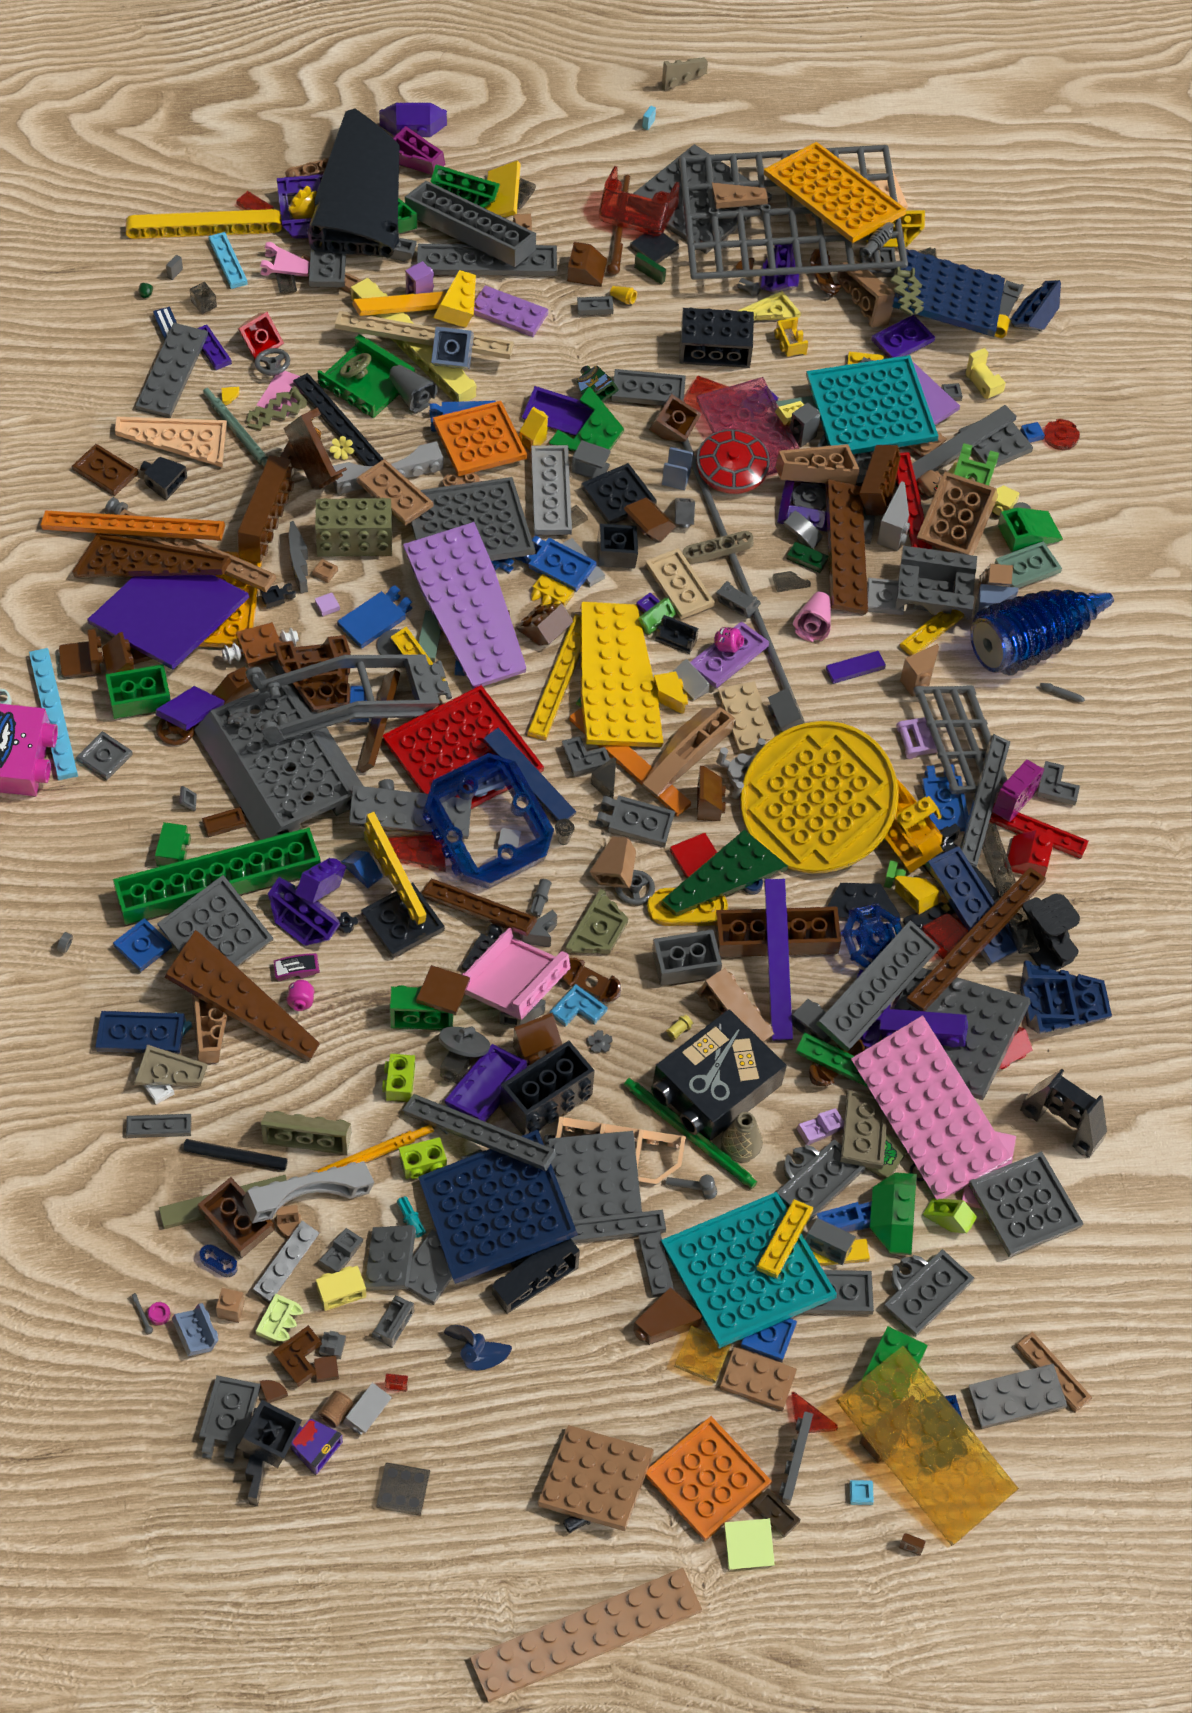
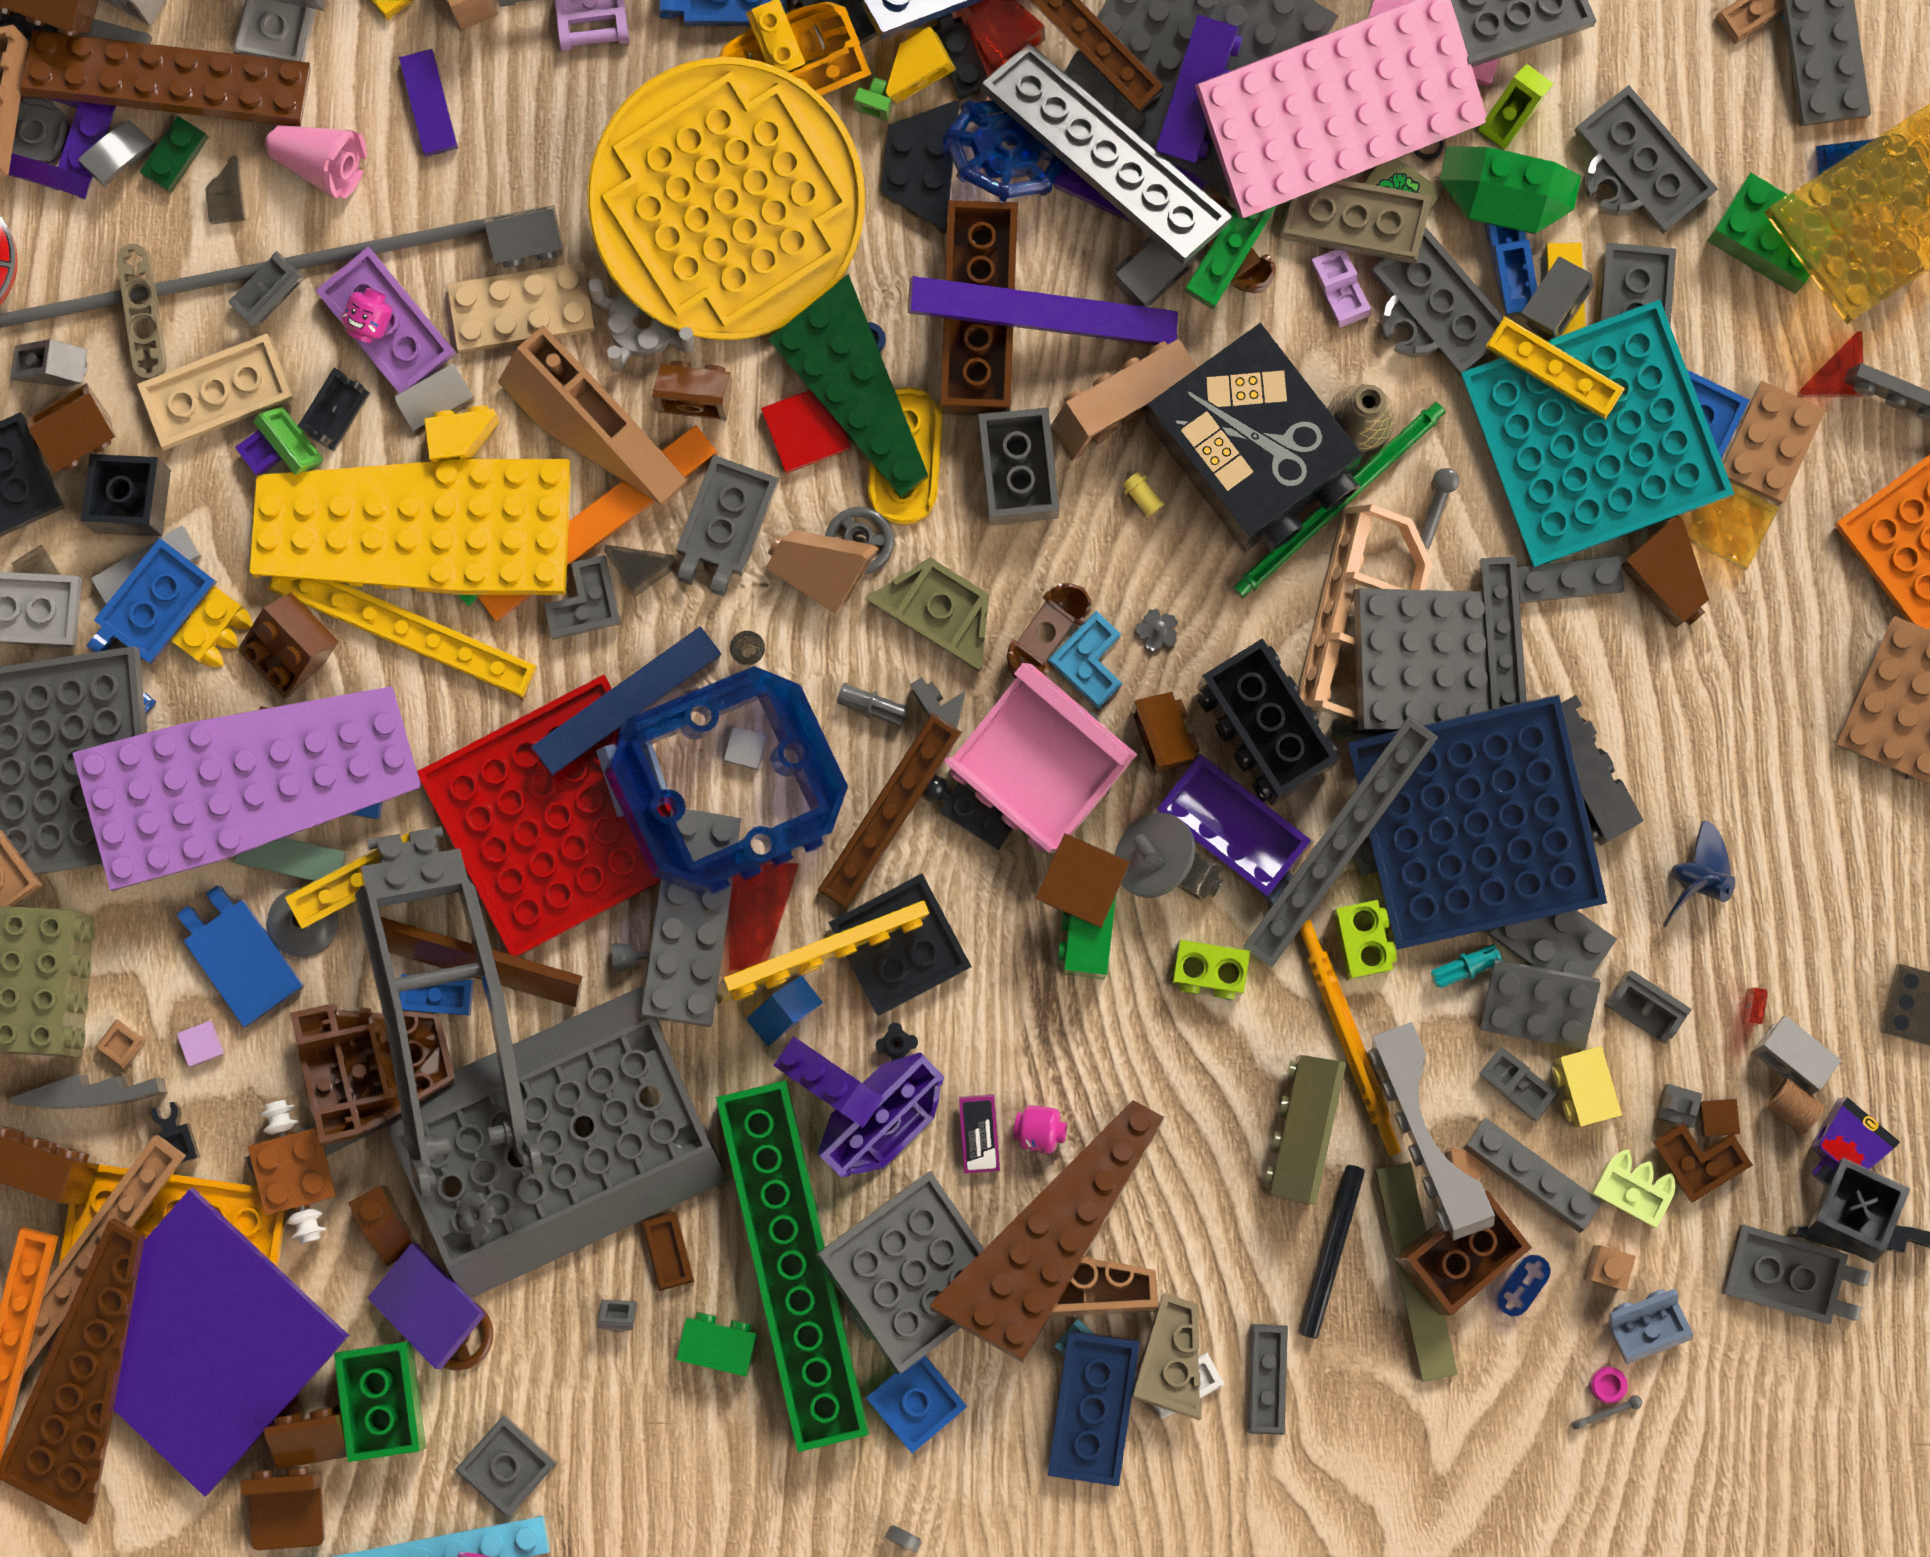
camera: 80 degrees left, 25 degrees up
(273, 1390) = (1752, 1204): reddish brown tile -> none

